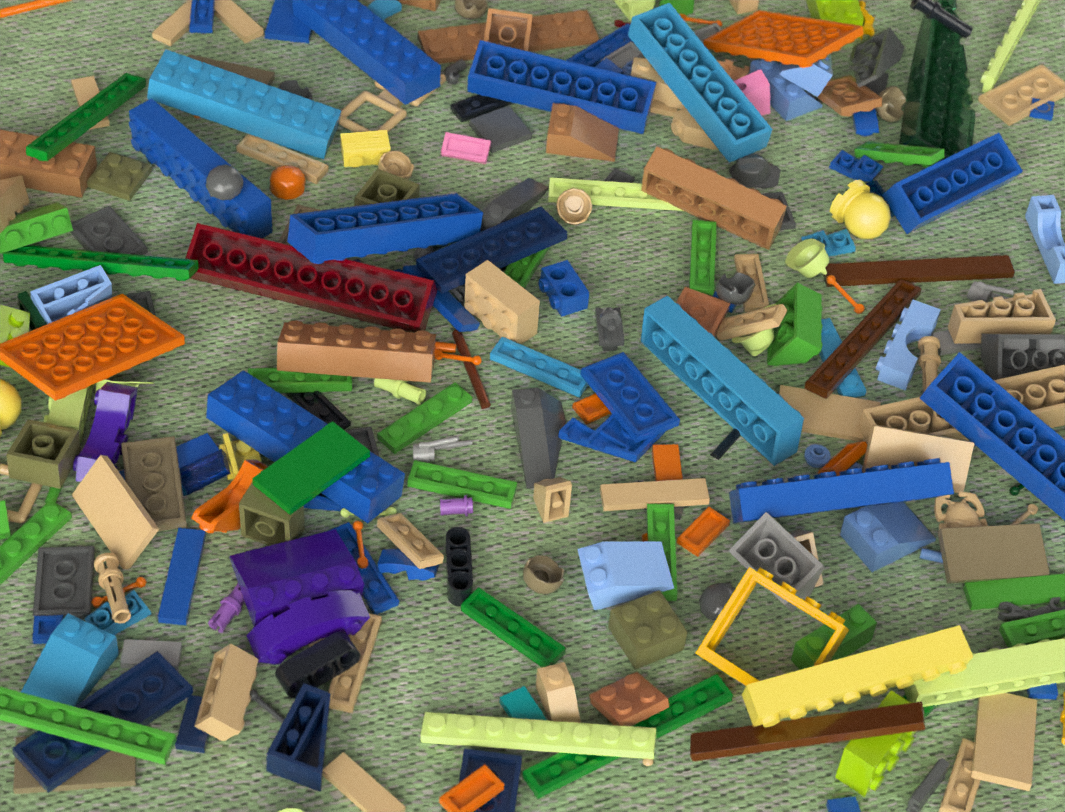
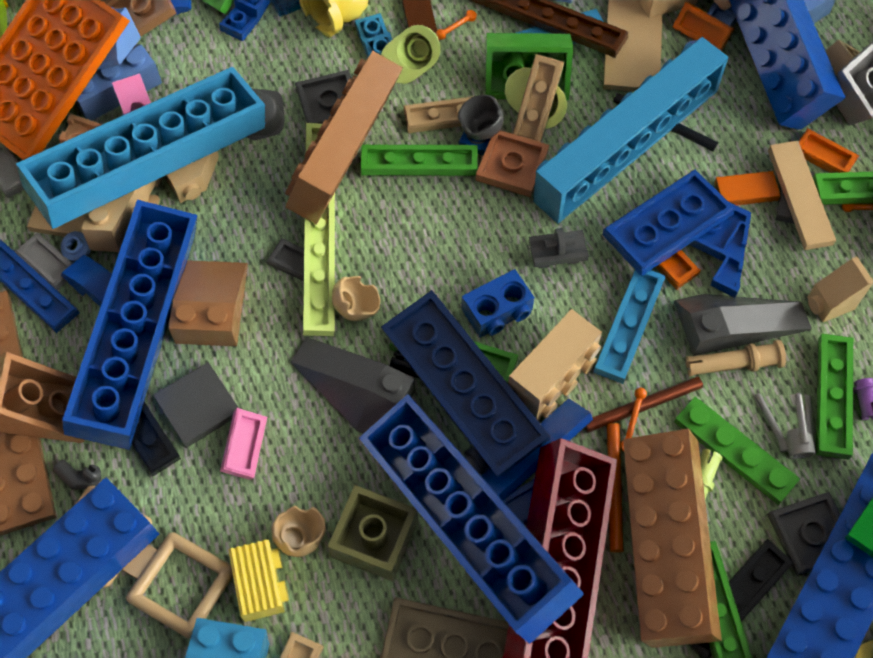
camera: 90 degrees left, 15 degrees up
(502, 435) = (750, 357): none -> tan pin

